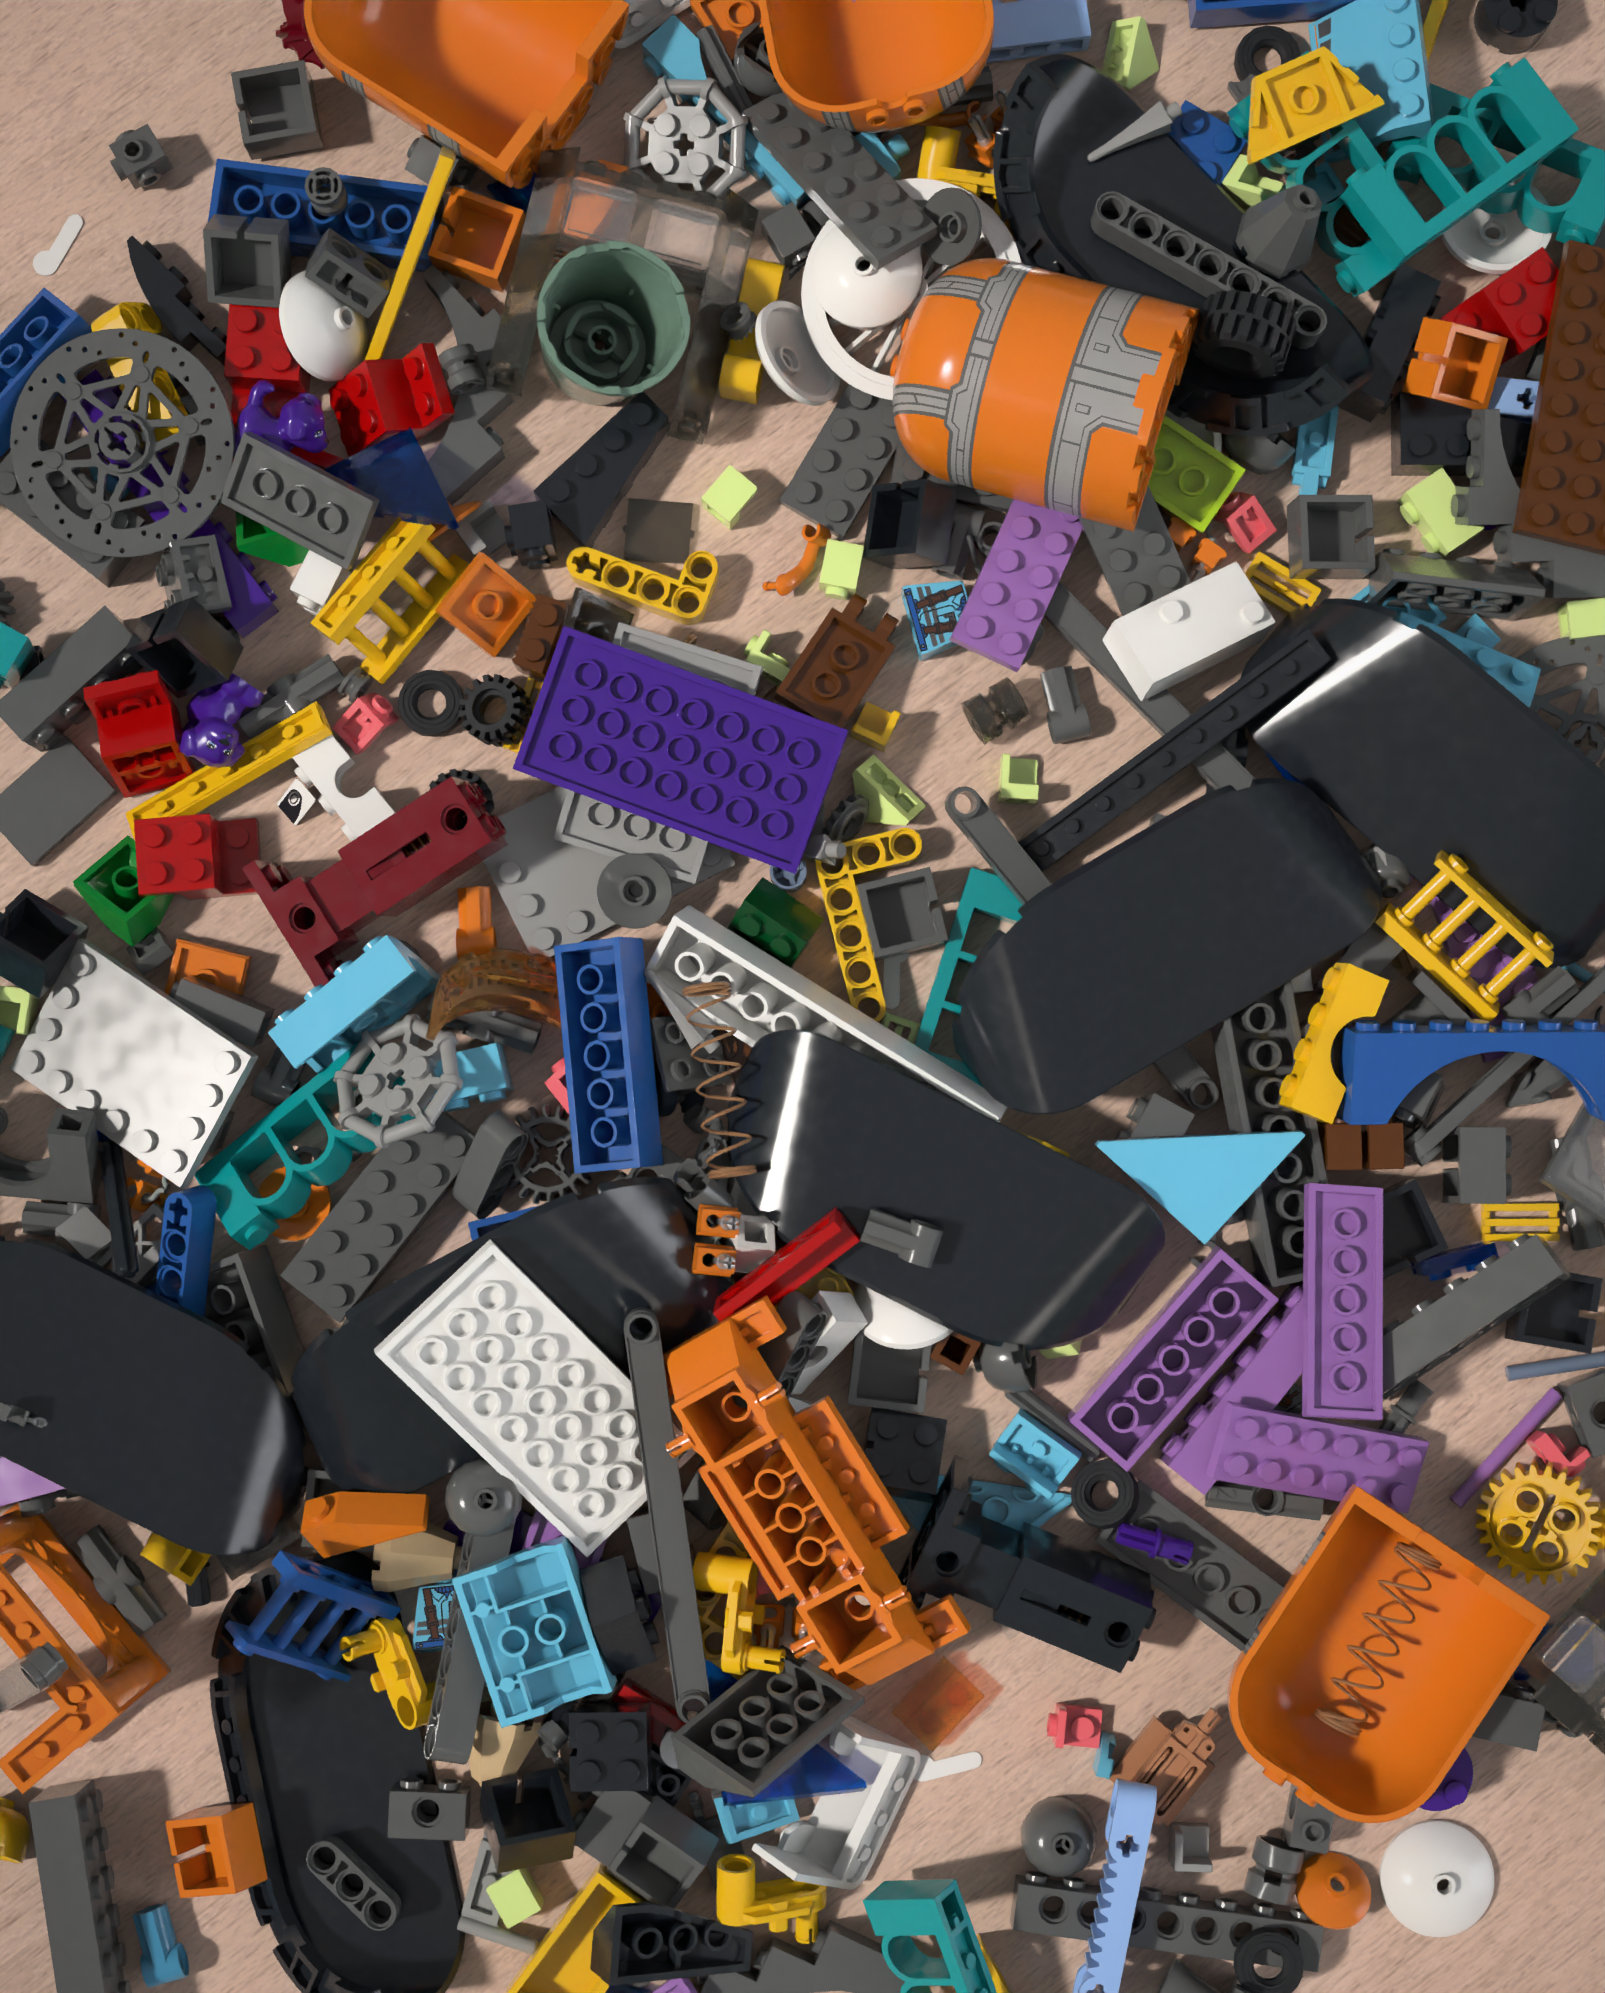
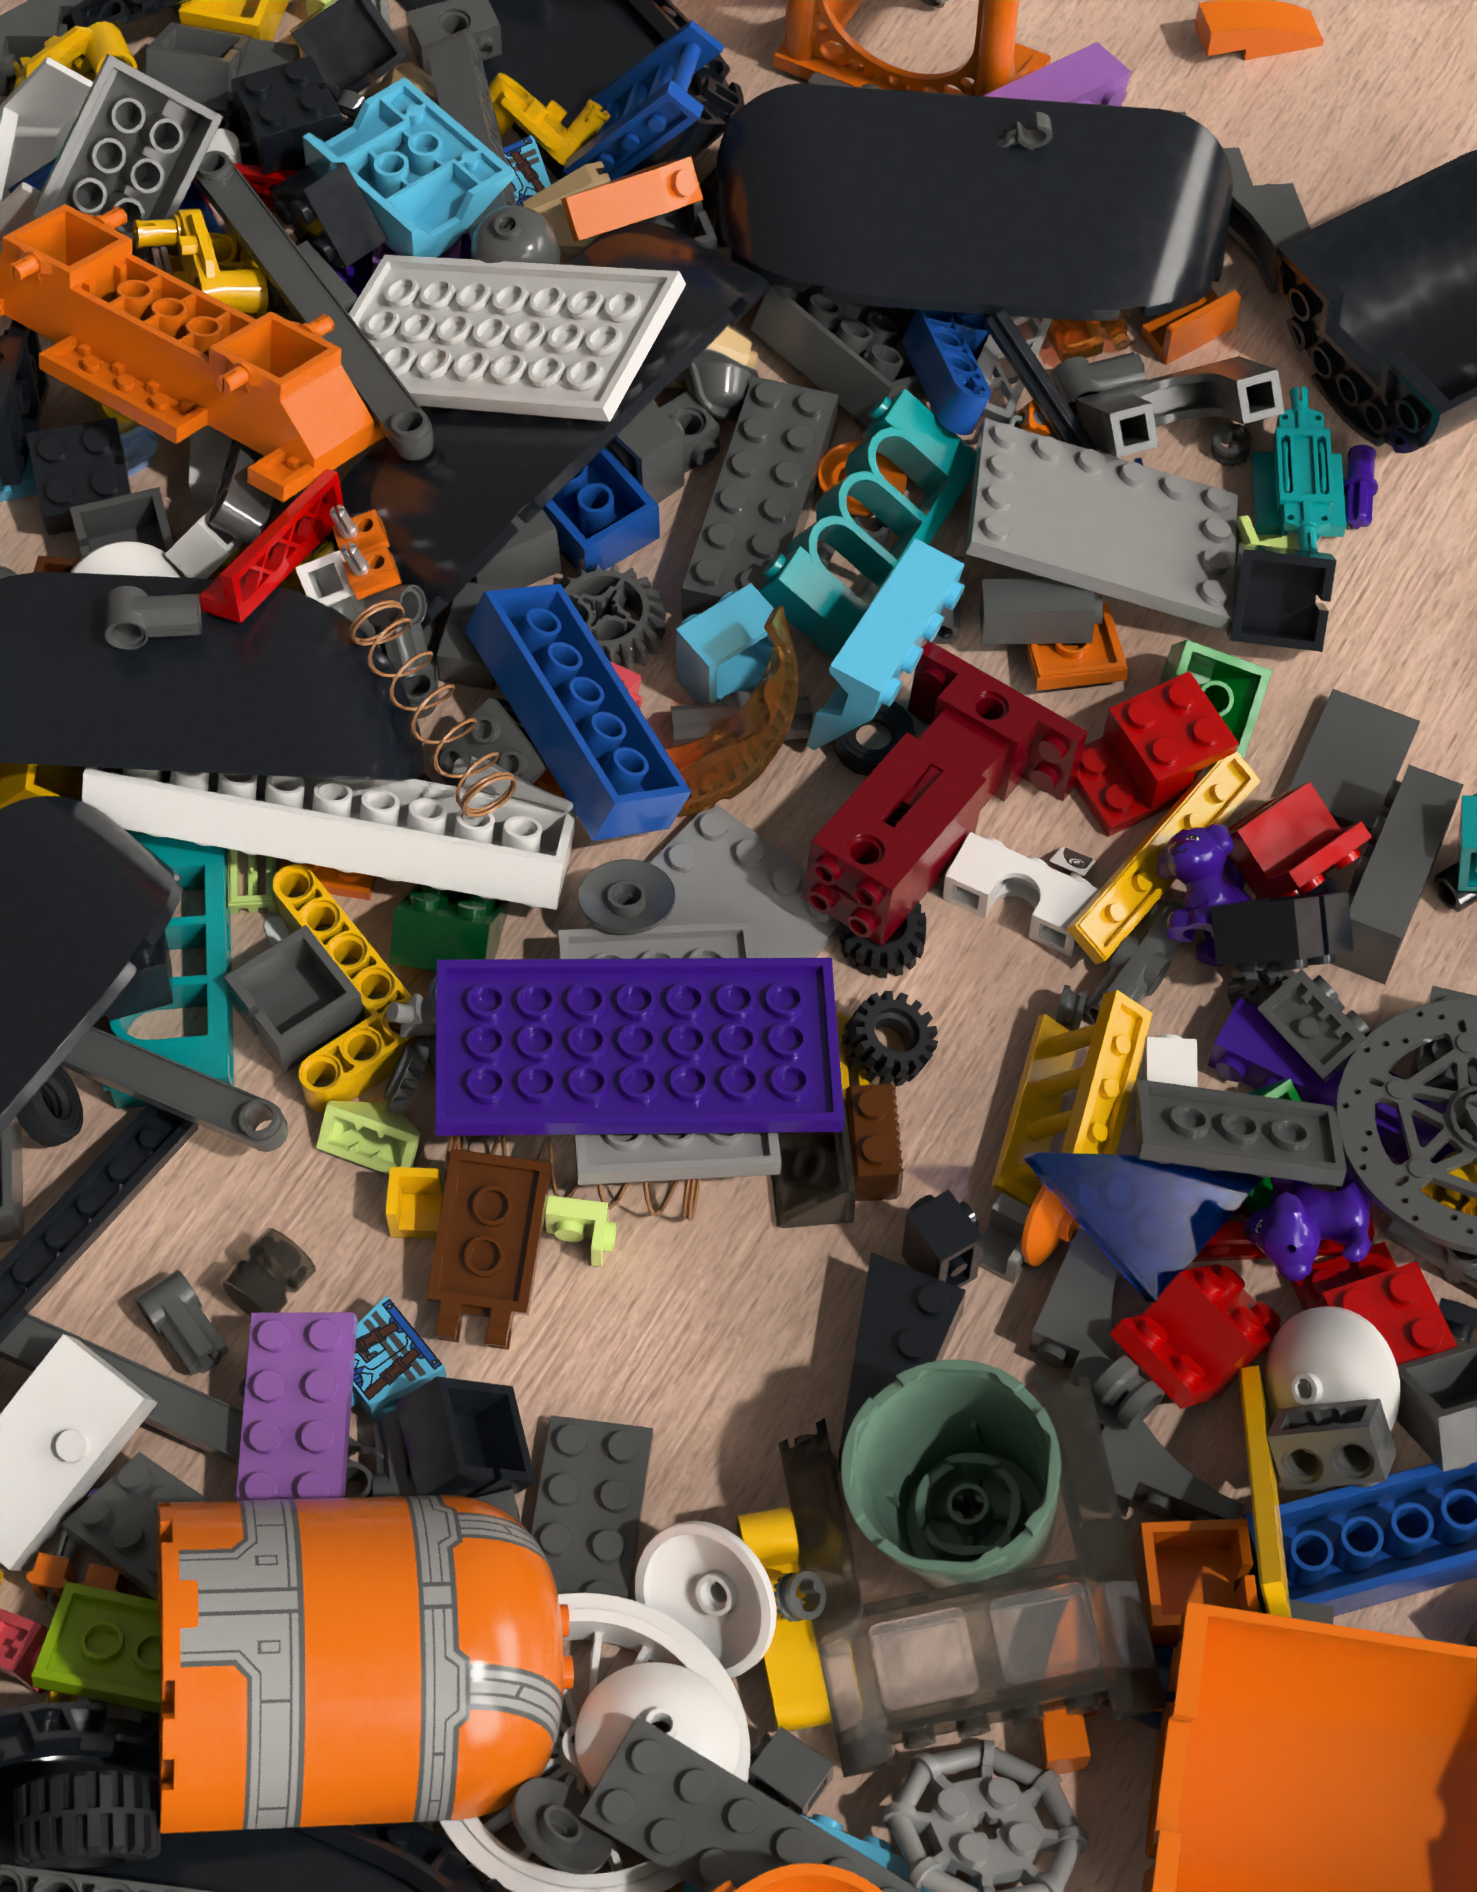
camera: 160 degrees right, 25 degrees down
(84, 1235) = (1065, 357): light grey panel -> none
(150, 951) = (1149, 651): dark grey plate -> none
(331, 199) = (1409, 1540): dark grey wheel -> none
(365, 721) = (1037, 976): coral bracket -> none
(387, 1065) = (809, 561): light grey plate -> none
(409, 698) = (981, 1002): black tyre -> none
(475, 921) = (795, 804): orange piece -> none
(486, 604) = (959, 1148): orange plate -> none
(489, 1164) = (662, 569): dark grey beam -> none
(641, 578) = (784, 1264): yellow beam -> none
(658, 531) = (791, 1336): clear smoke piece -> none
(693, 1119) = (417, 681): dark grey piece -> none
(728, 496) = (719, 1397): yellowish green panel -> none
(789, 581) = (588, 1397): orange piece -> none
(840, 569) = (536, 1371): yellowish green brick -> none
(1018, 780) = (208, 1212): yellowish green panel -> none

